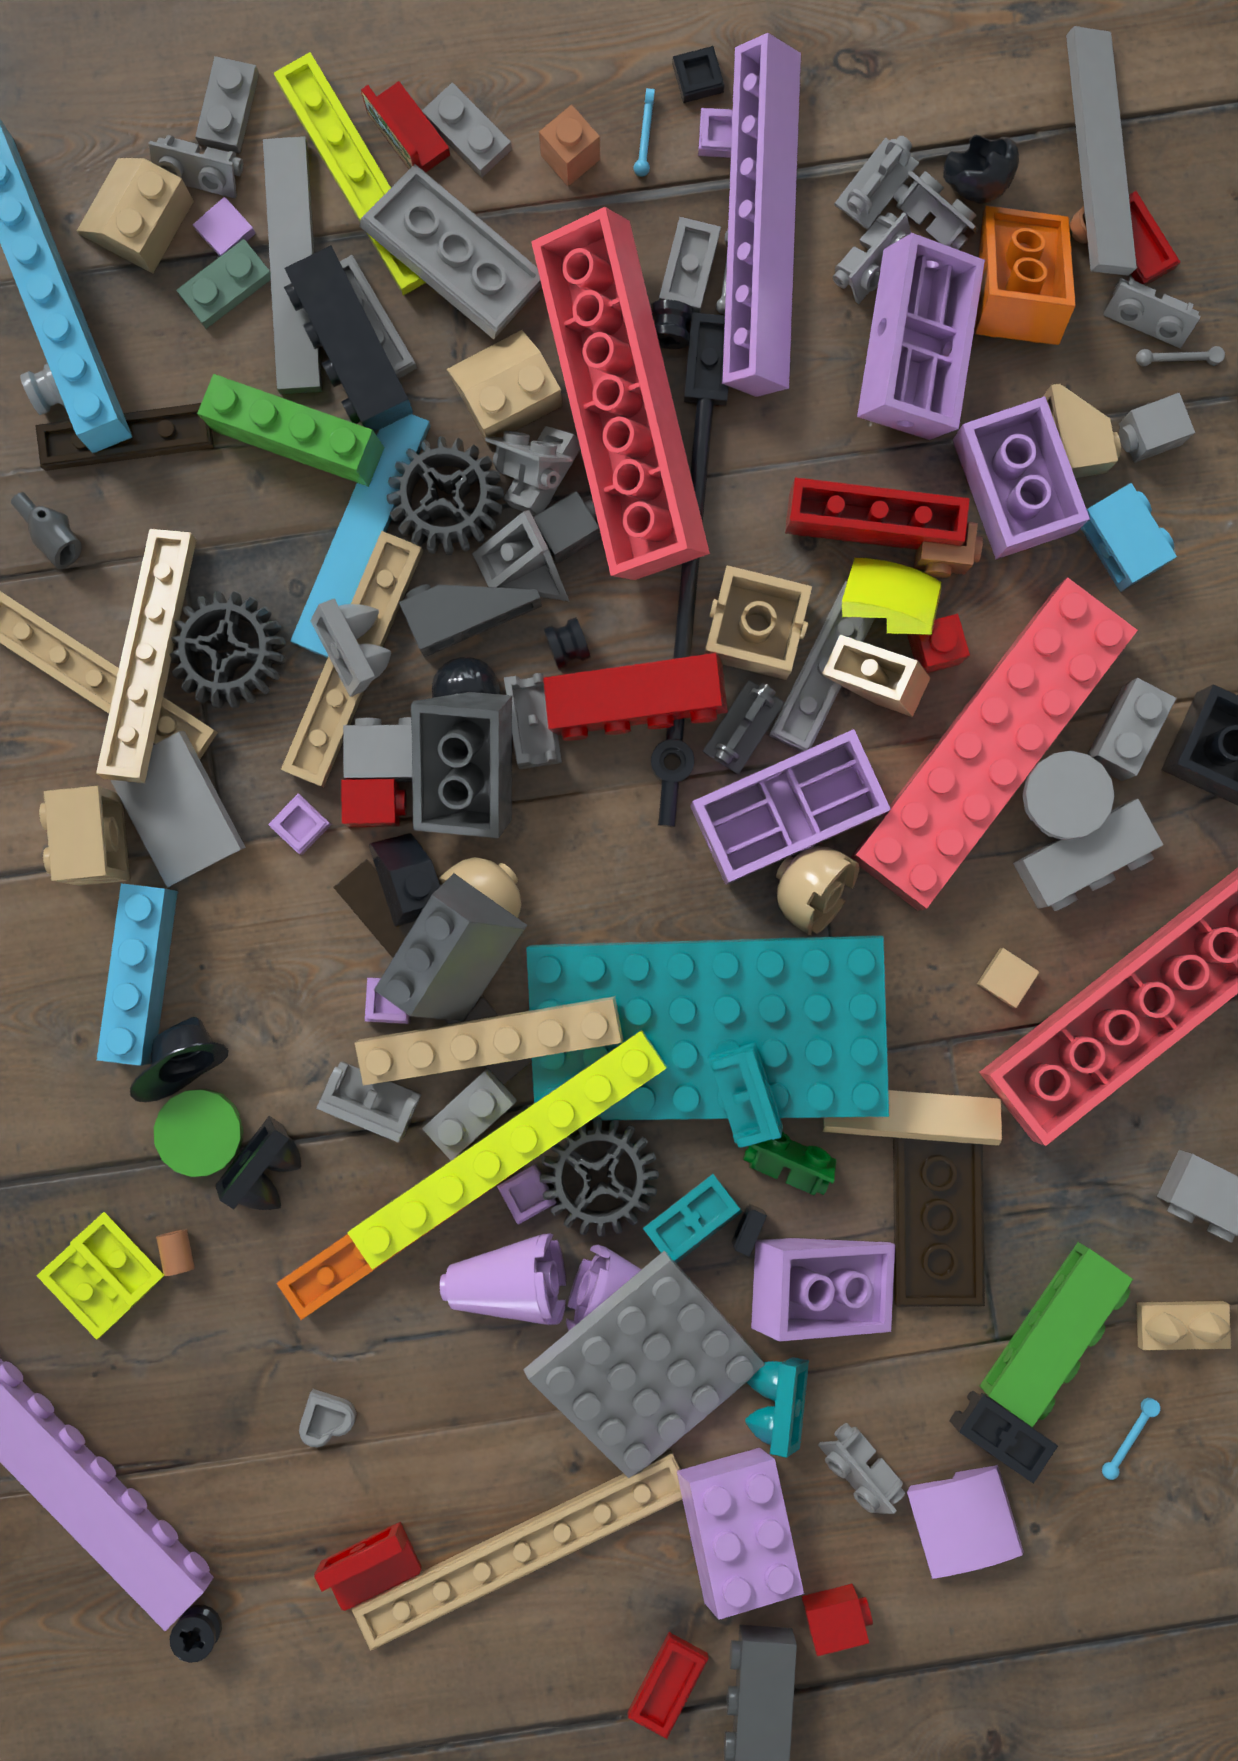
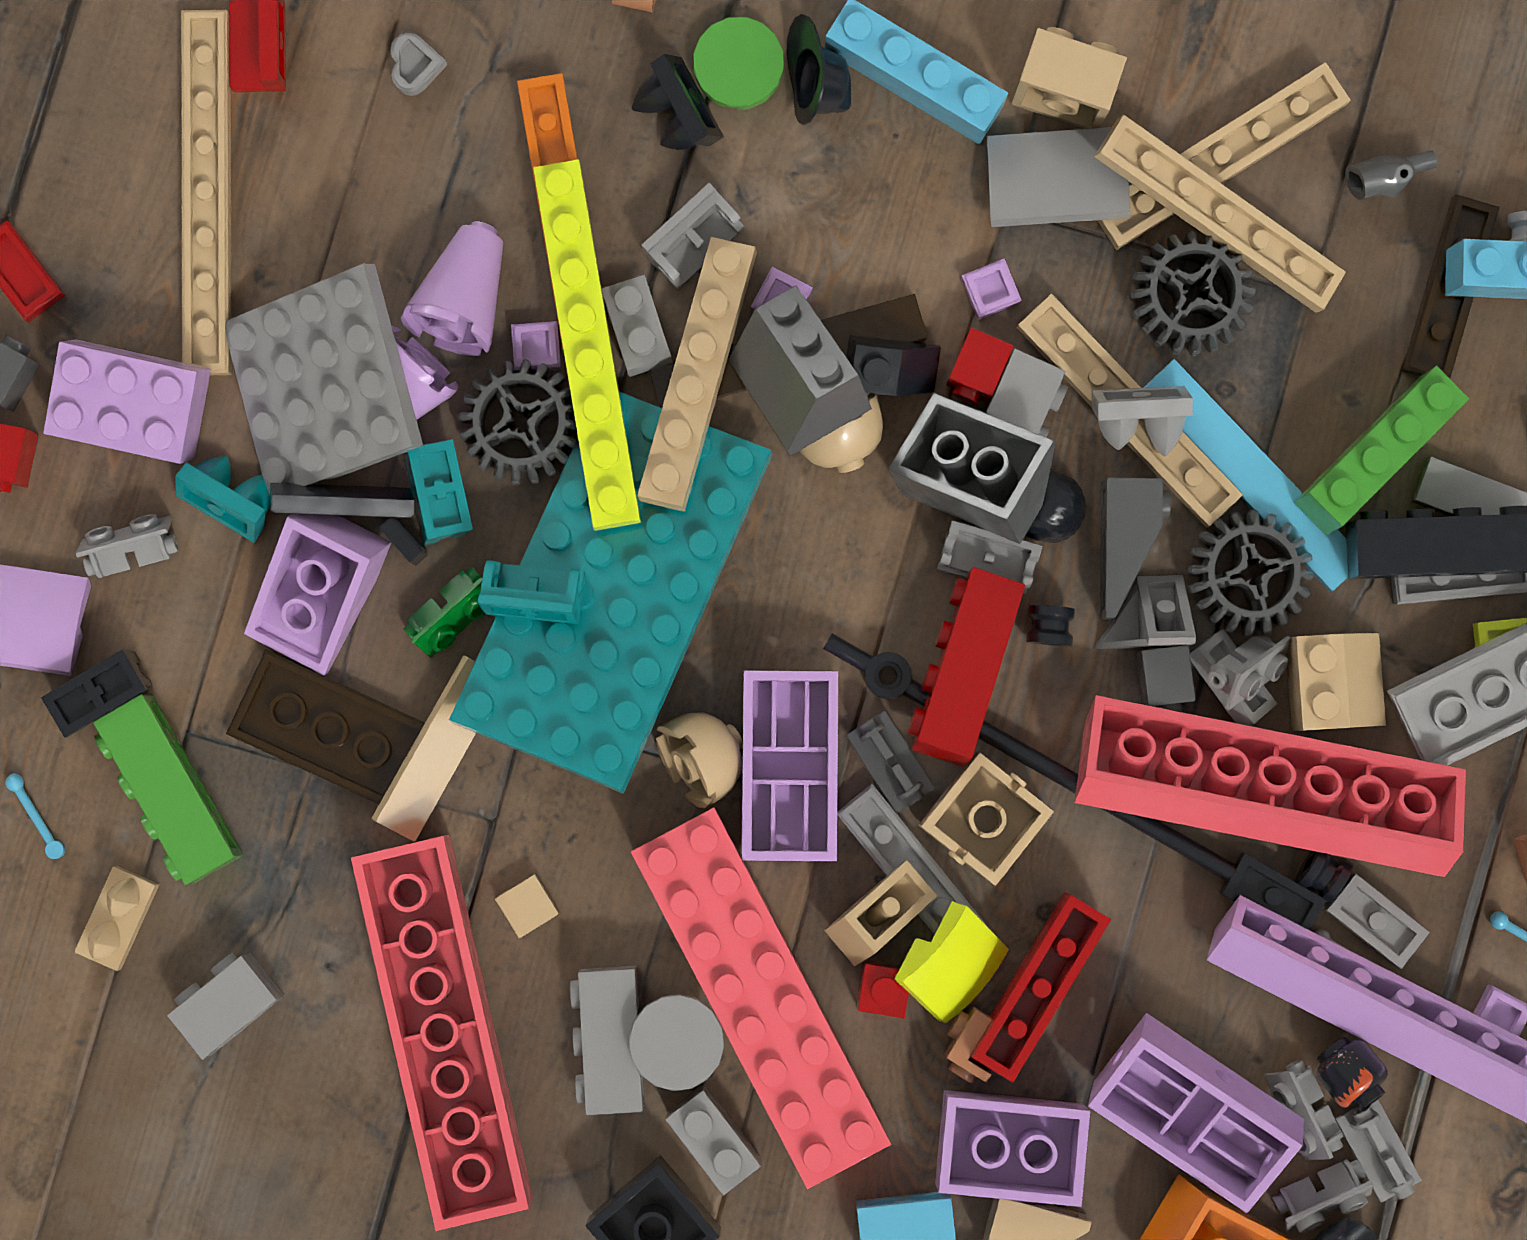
camera: 120 degrees right, 0 degrees up
(740, 1300) = (341, 500): none -> tile
(826, 228) = (1352, 1073): none -> black head

